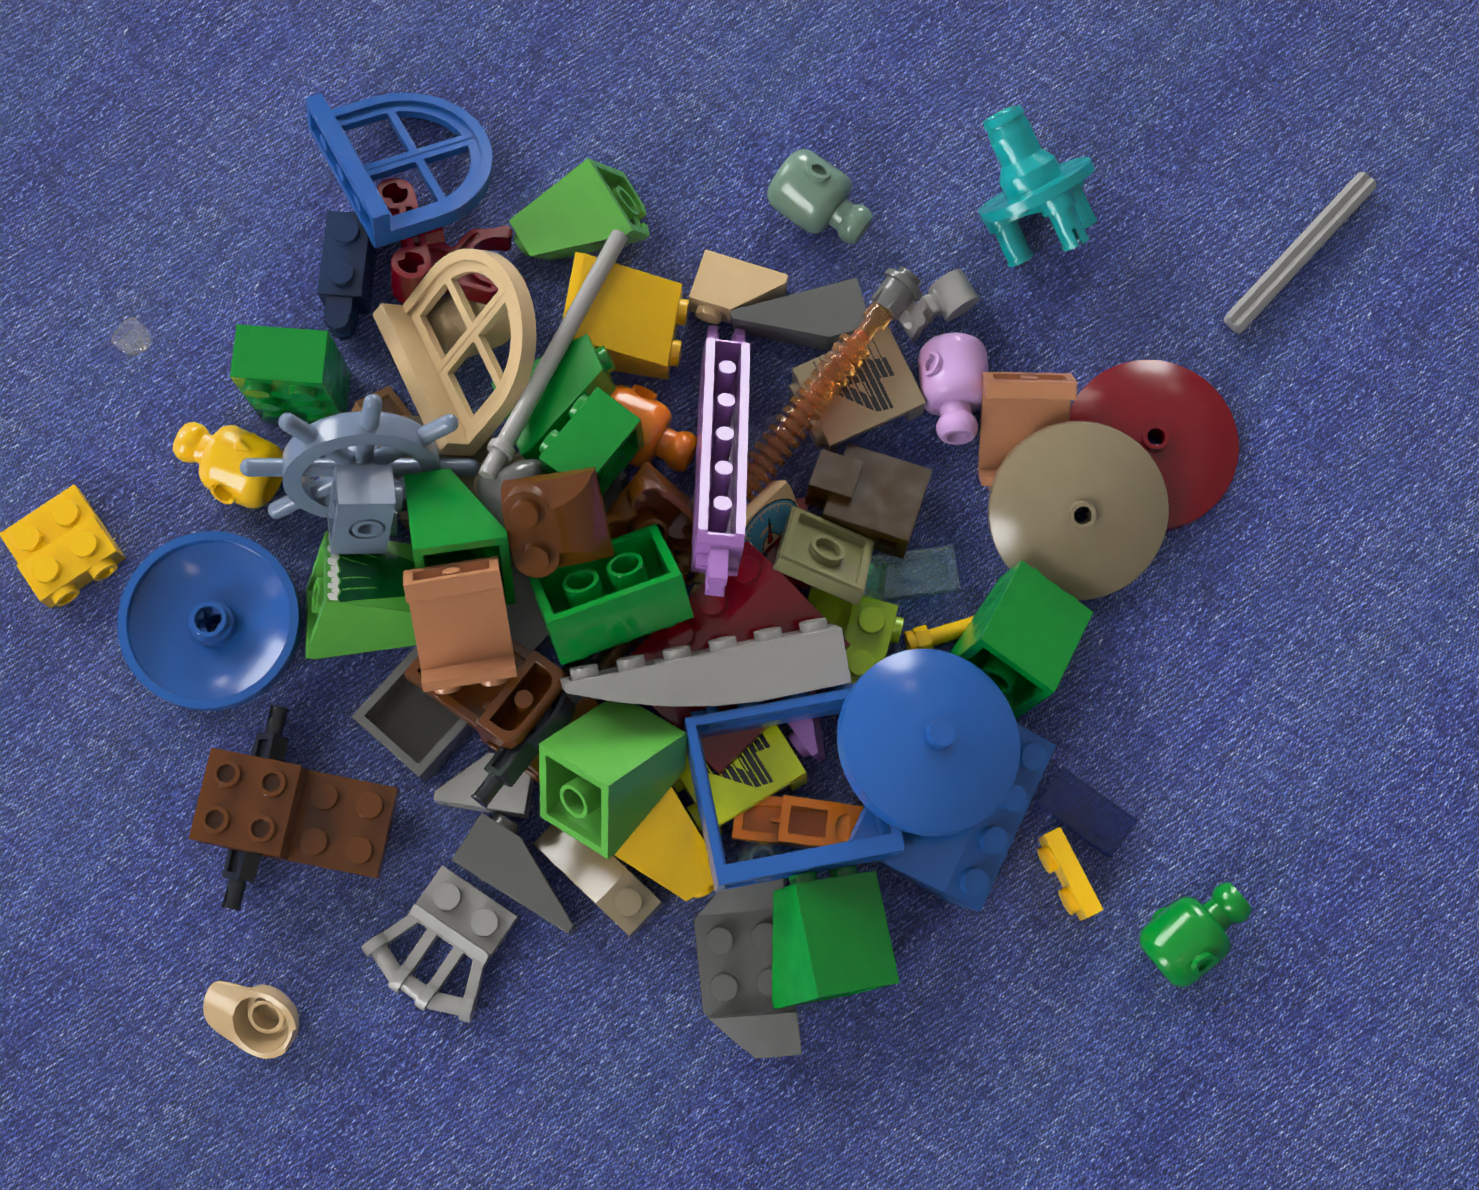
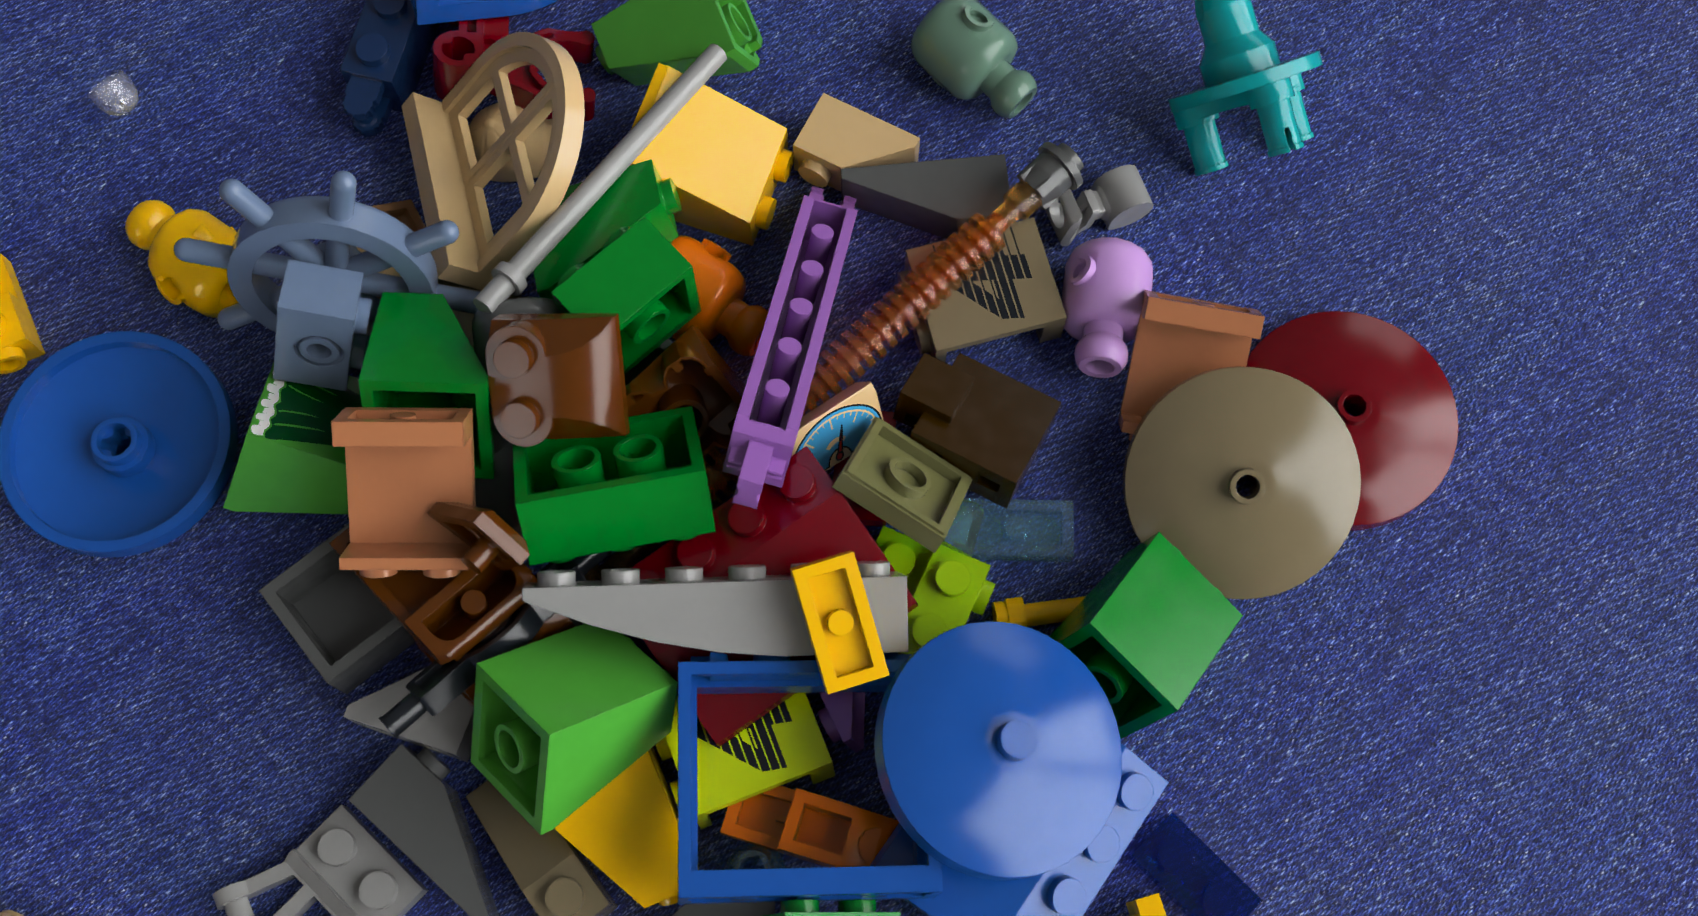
camera: 10 degrees right, 5 degrees down
(289, 813) = (155, 703): reddish brown piece -> none
(290, 372) = (273, 141): green brick -> none
(524, 646) = (486, 534): none -> reddish brown piece
(798, 669) = (839, 622): none -> yellow plate
(1299, 252) = (1562, 214): light grey axle -> none

